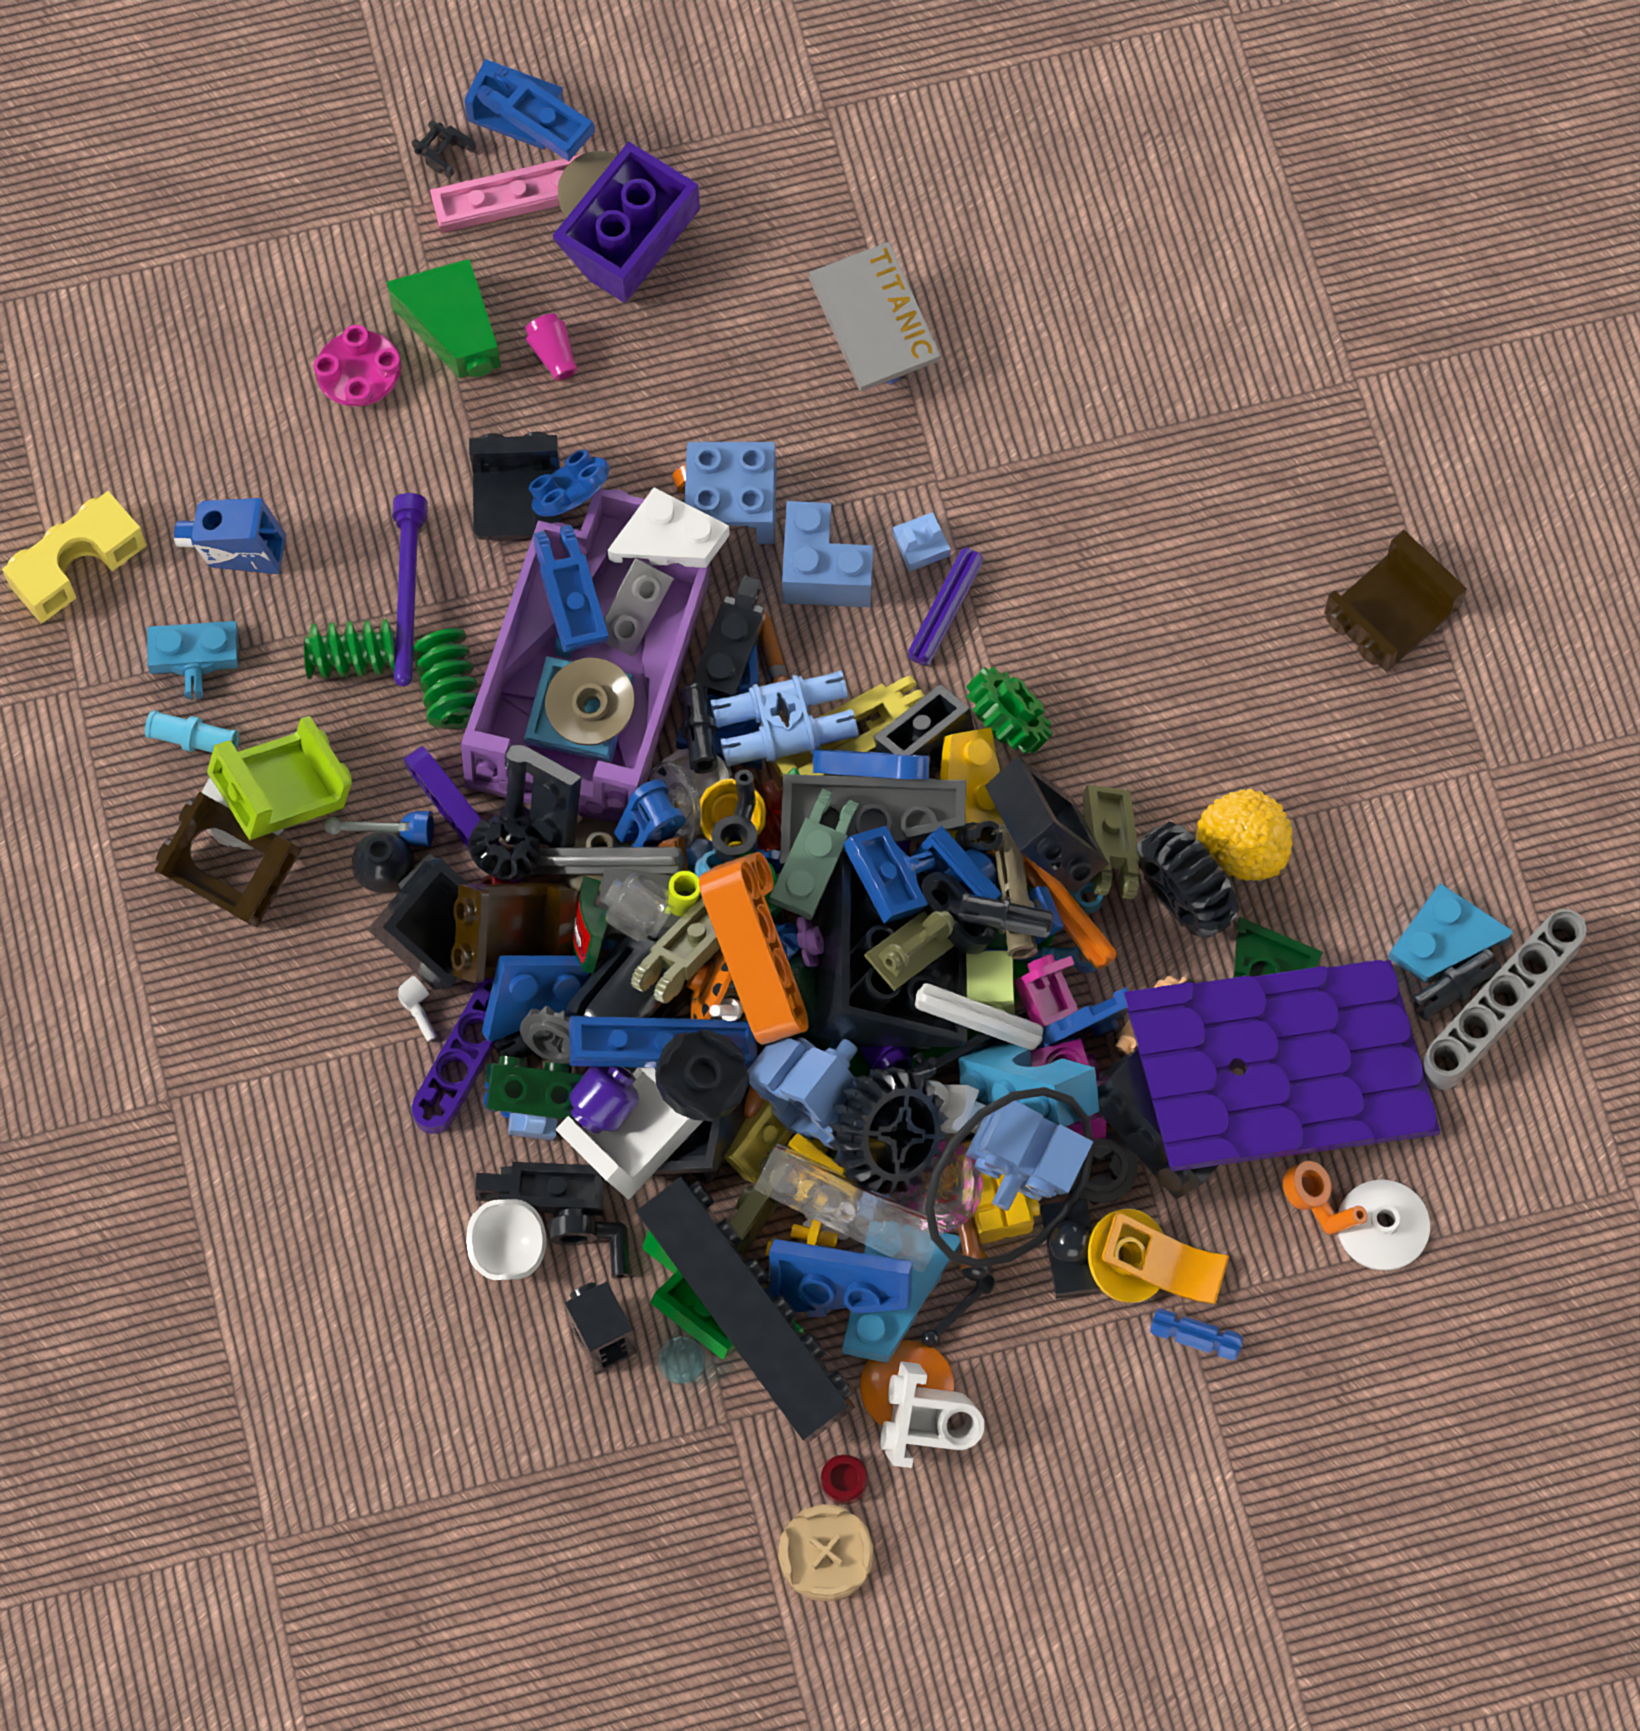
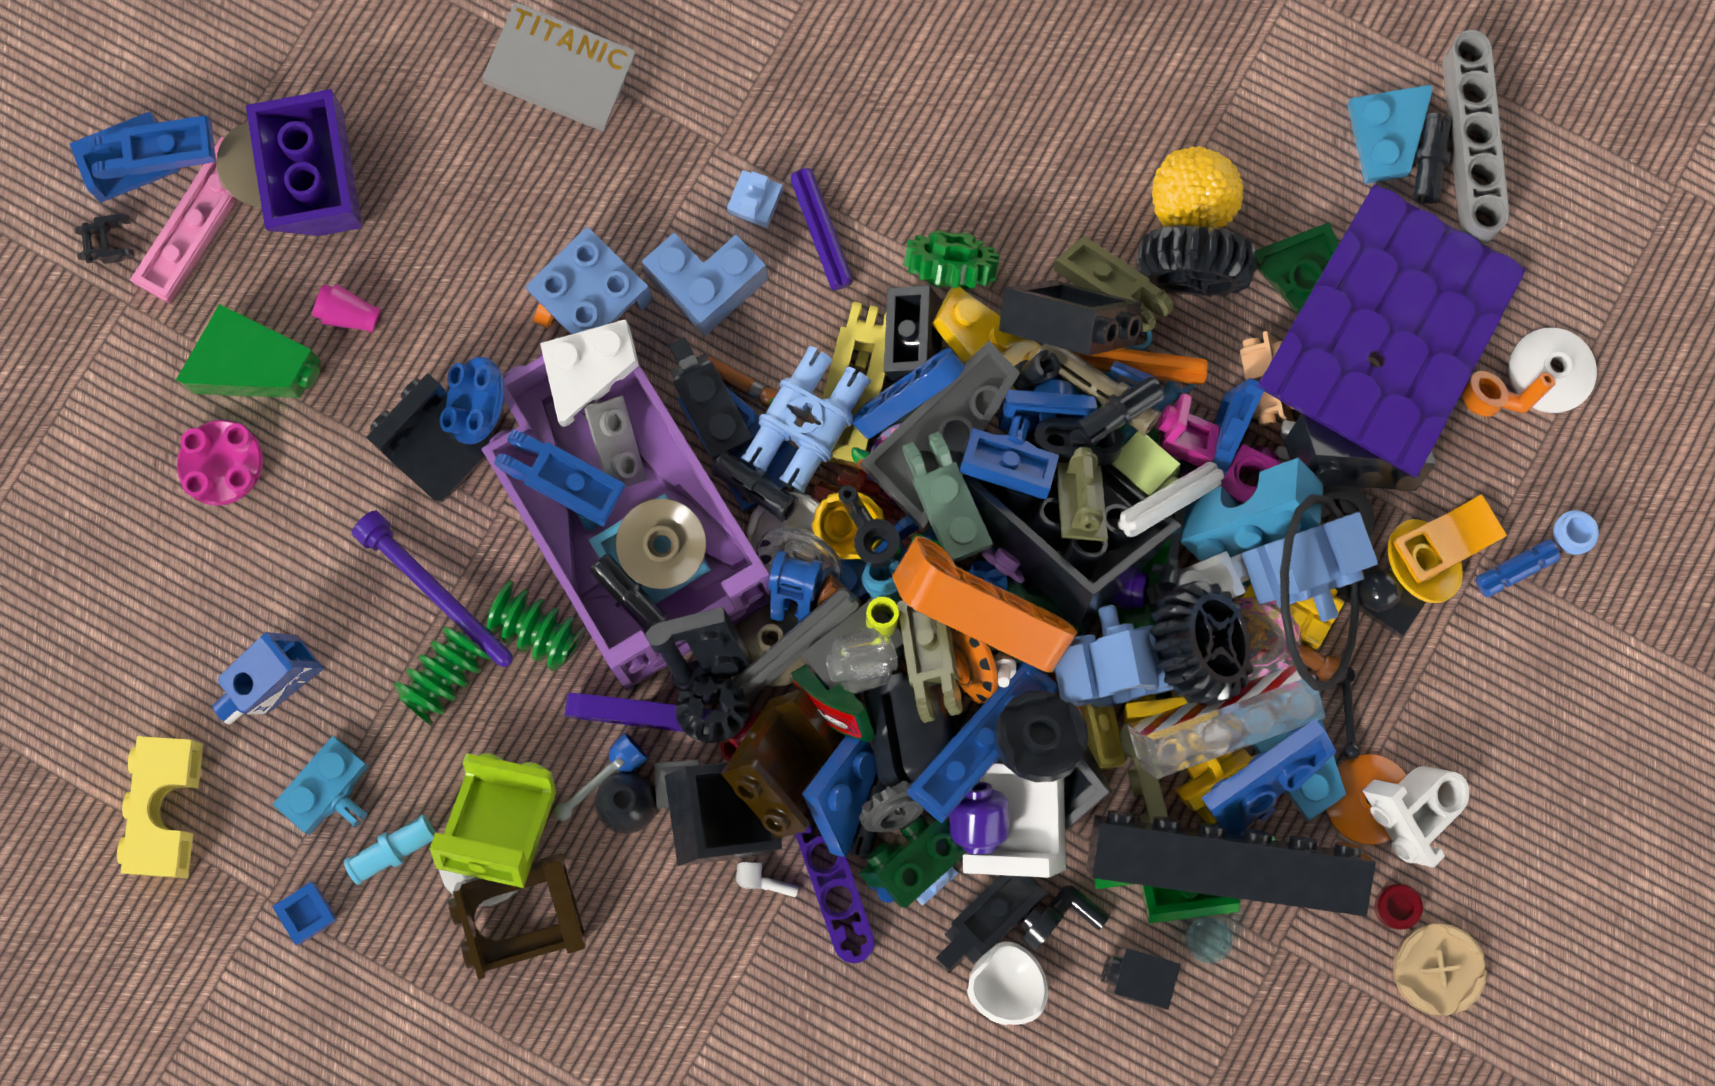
camera: 45 degrees left, 10 degrees up
(91, 719) = (305, 913): none -> blue plate
(533, 711) = (627, 592): none -> black axle
(1268, 1352) = (1575, 532): none -> light blue plate

